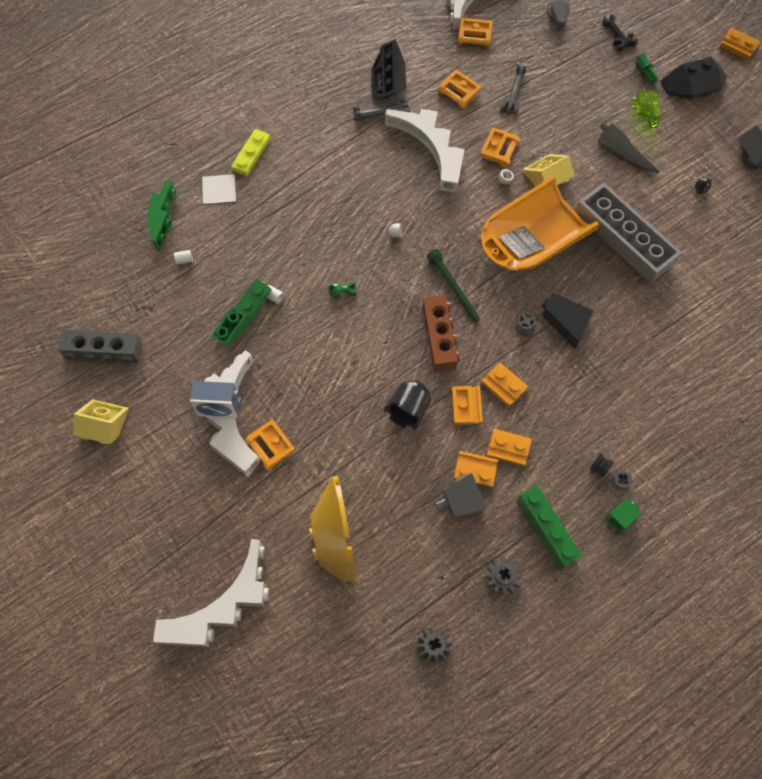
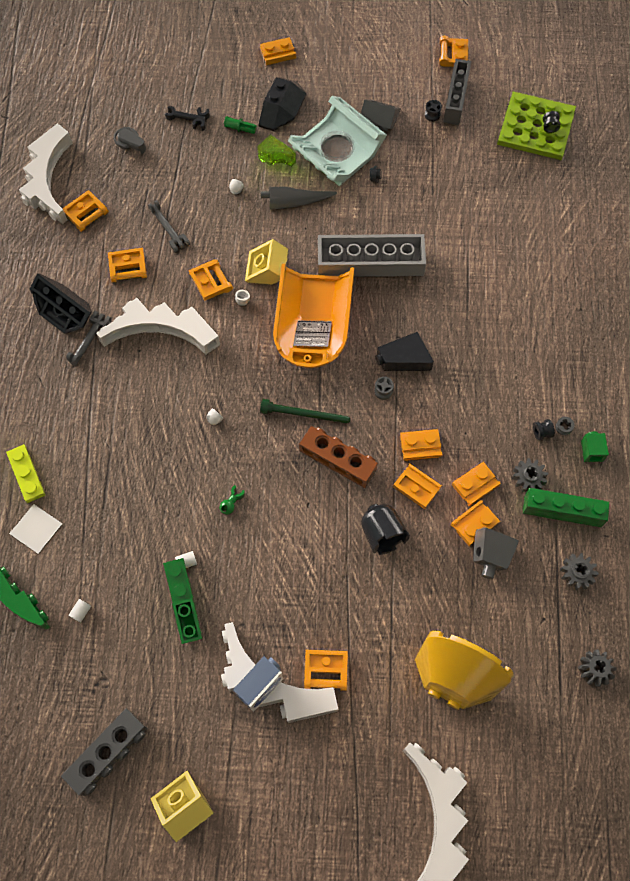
camera: 50 degrees left, 0 degrees up
(555, 475) = (522, 472): none -> dark grey gear
(592, 105) = (236, 186): none -> white hinge
(703, 141) = (340, 142): none -> light aqua panel

